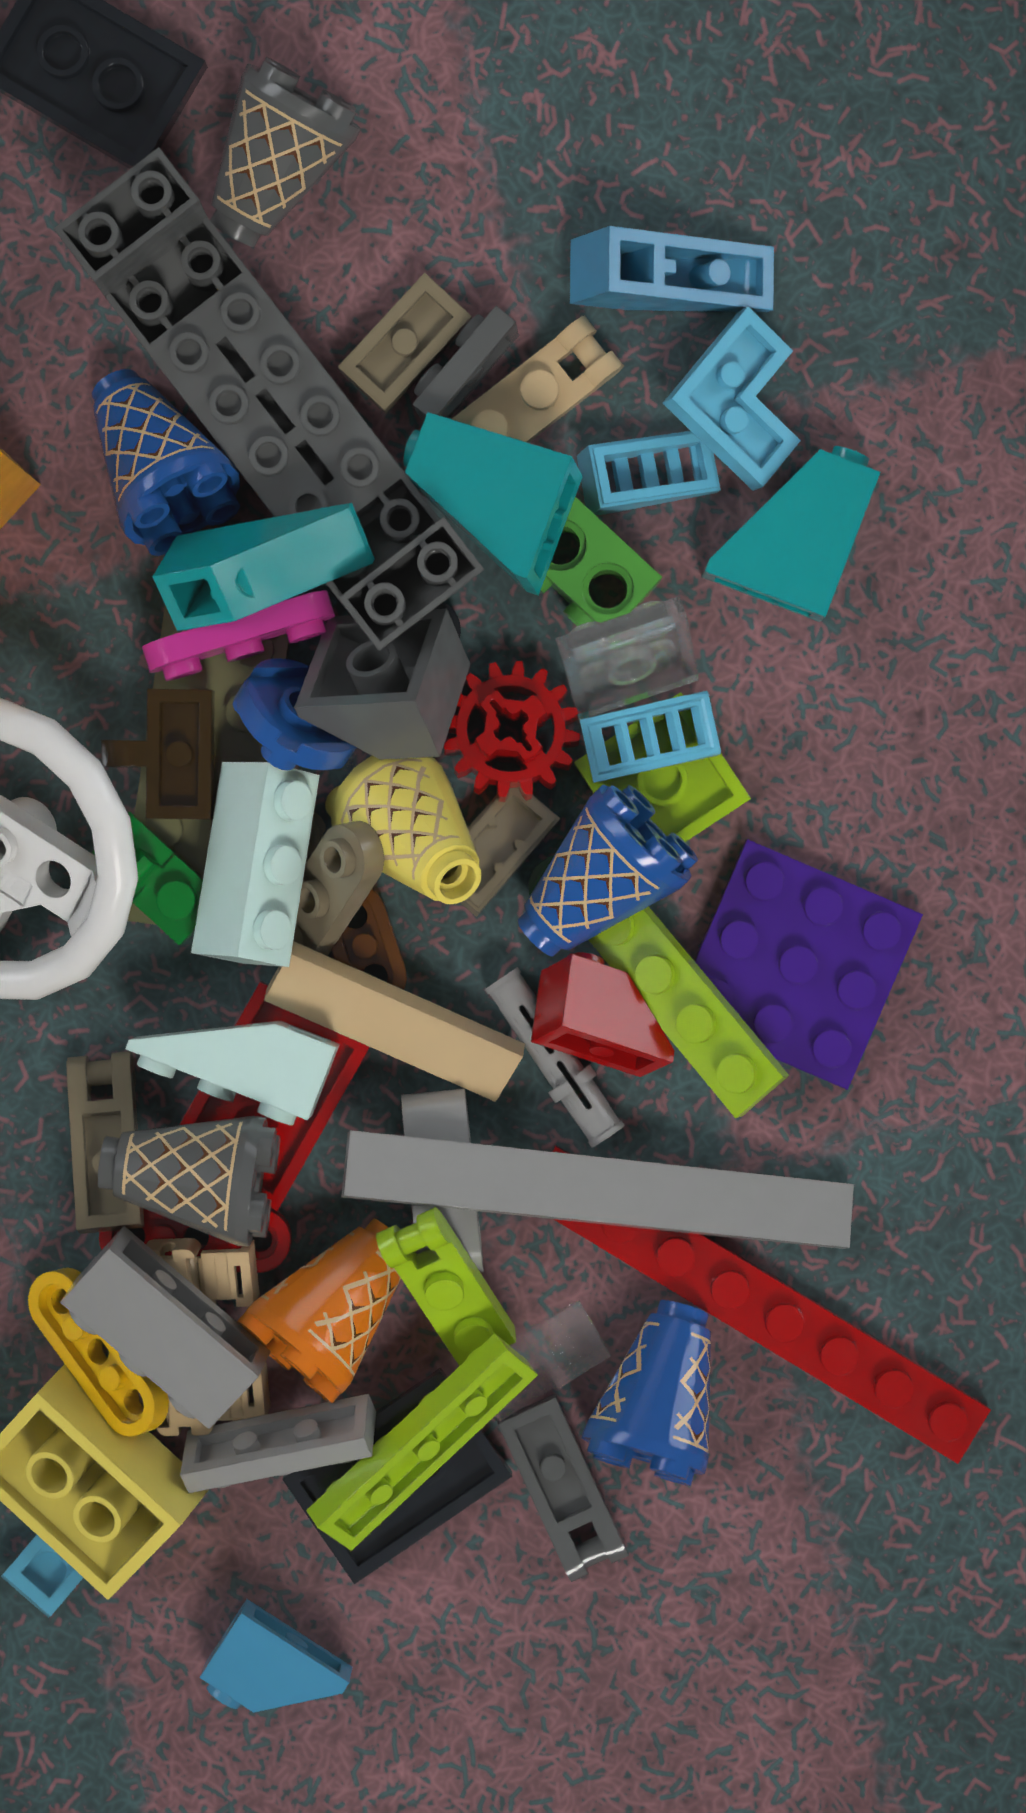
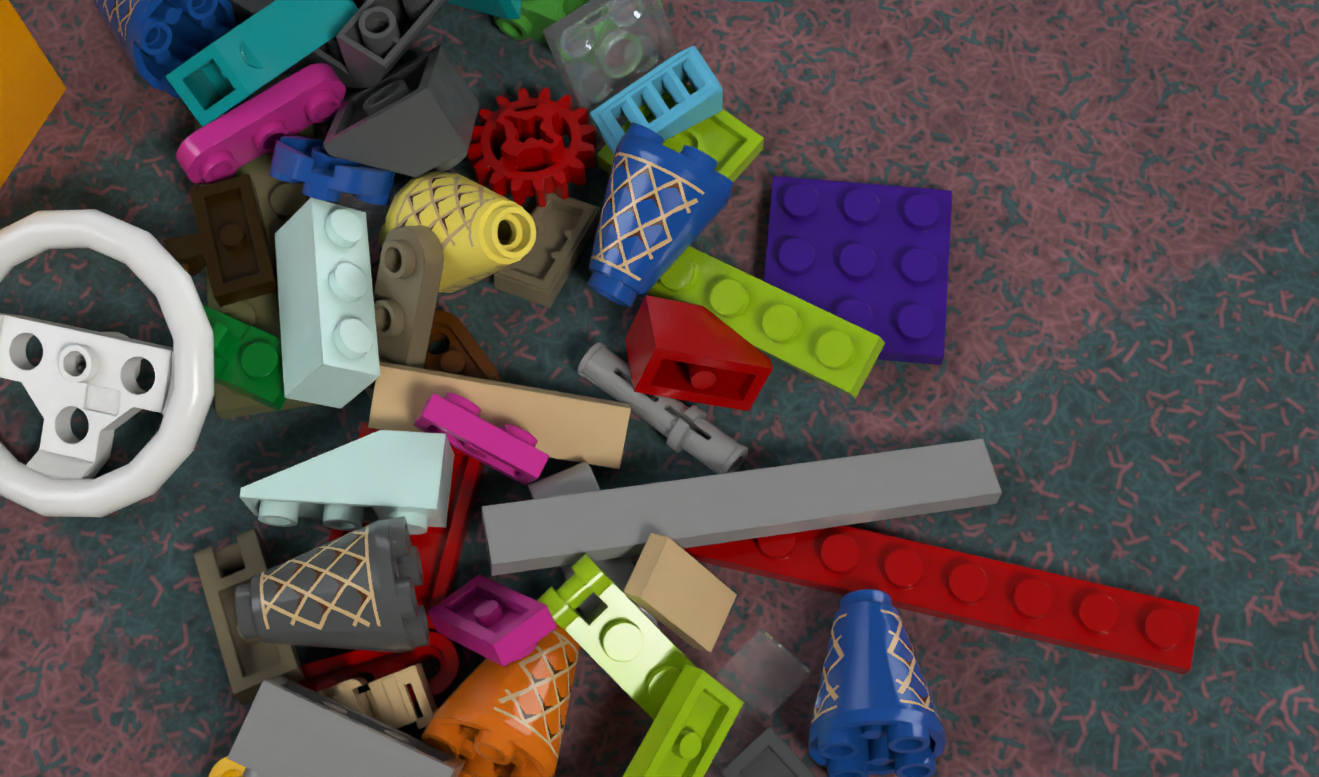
camera: 15 degrees left, 20 degrees down
(330, 1235) = (493, 620): none -> dark pink plate
(351, 1037) = (503, 449): none -> dark pink plate
(512, 1256) = (680, 592): none -> tan tile

